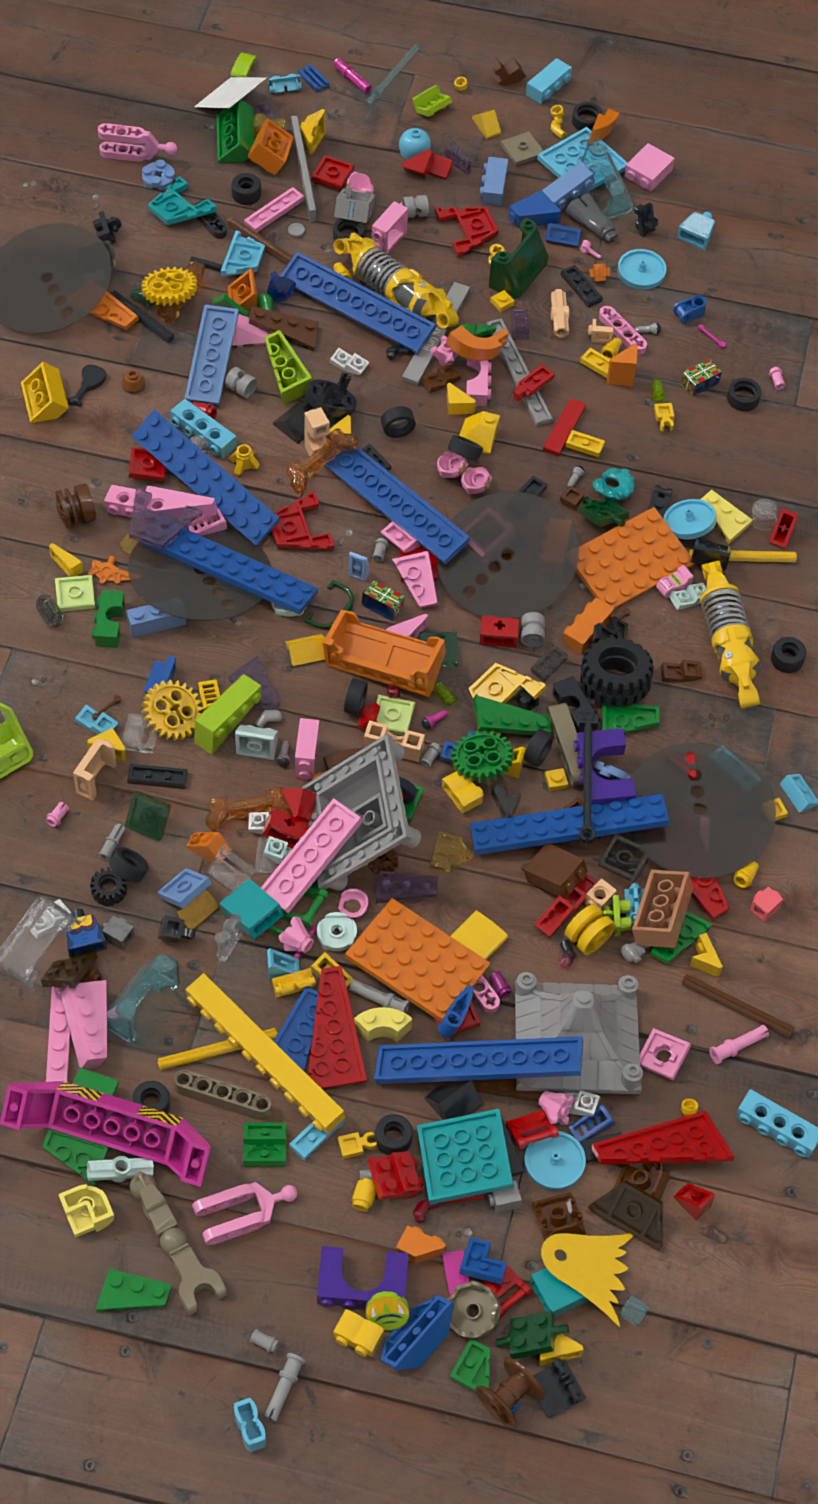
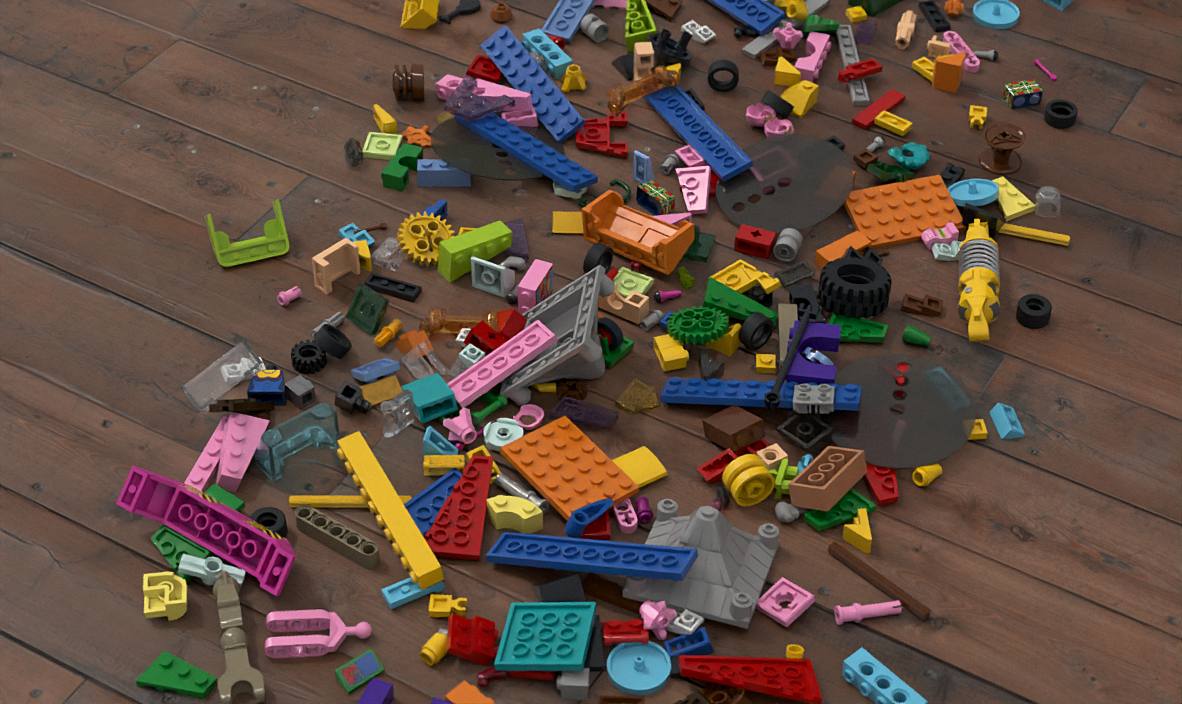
camera: 20 degrees right, 15 degrees down
(176, 836) = (388, 333): none -> light orange axle
(264, 1144) = (359, 587): green slope -> none
(302, 1239) = (358, 671): none -> slope
(398, 1123) = (486, 596): black tyre -> none
(475, 347) = (814, 33): orange arch -> none
(624, 821) = (813, 395): none -> light grey hinge
(658, 392) = (977, 99): clear neon green pin -> none
(687, 712) = (915, 336): none -> green cone
(690, 308) = (1033, 46): blue piece -> none
(703, 457) = (1002, 138): none -> reddish brown piece
(766, 903) = (938, 502): coral brick -> none
(776, 375) = (1097, 106): bright pink pin -> none
(784, 528) = (1064, 215): red slope -> none

